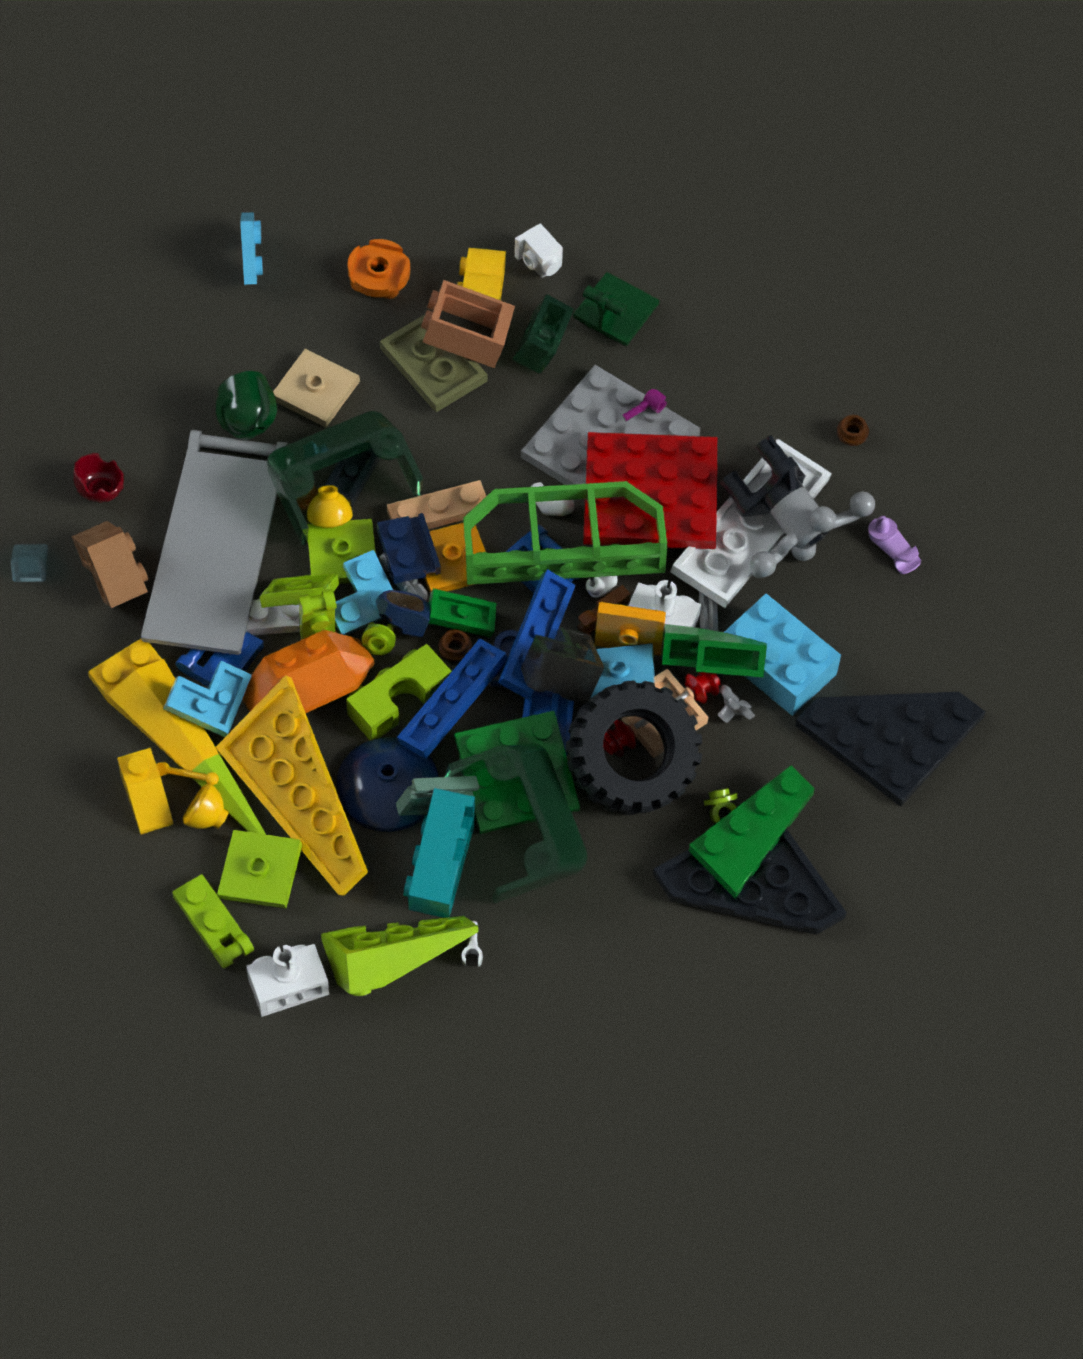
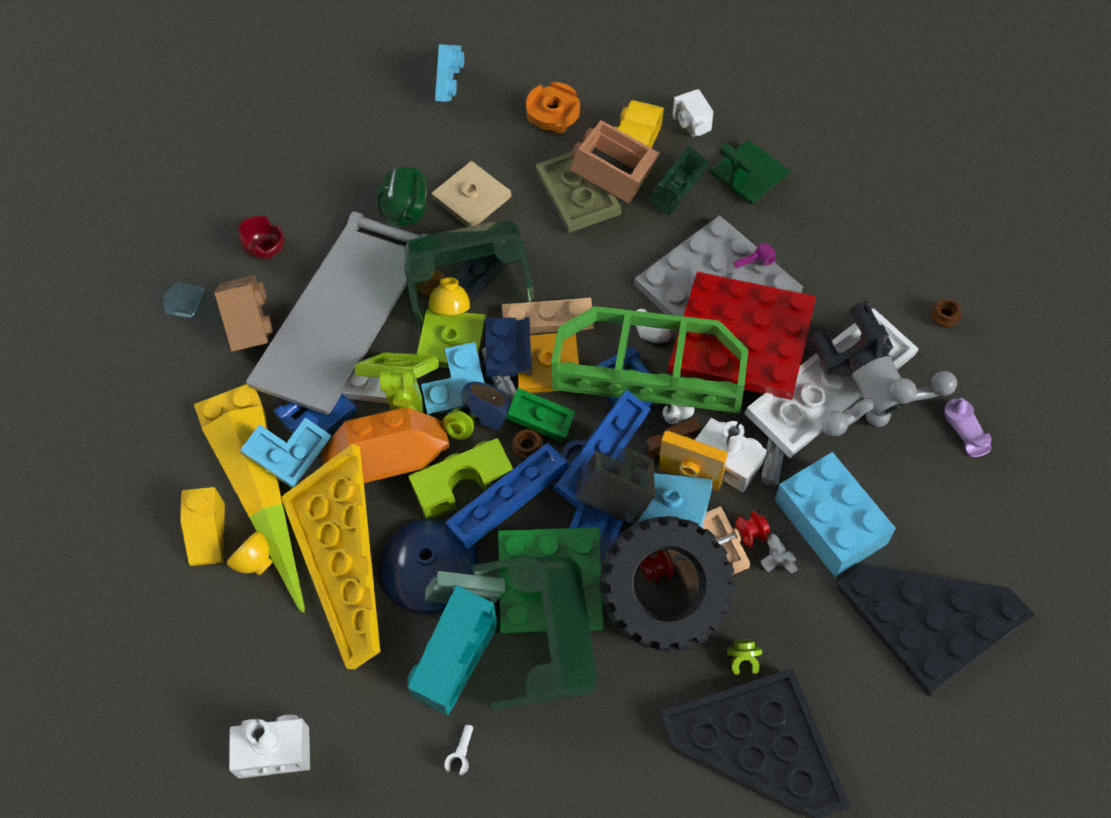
camera: 20 degrees right, 0 degrees up
(165, 769) = (229, 507): yellow hinge -> none
(212, 920) = (223, 668): lime plate -> none
(259, 869) = (281, 626): lime plate -> none
(377, 958) = (365, 743): lime wedge -> none
(713, 651) = (768, 500): green slope -> none
(747, 834) = (760, 698): green wing -> none

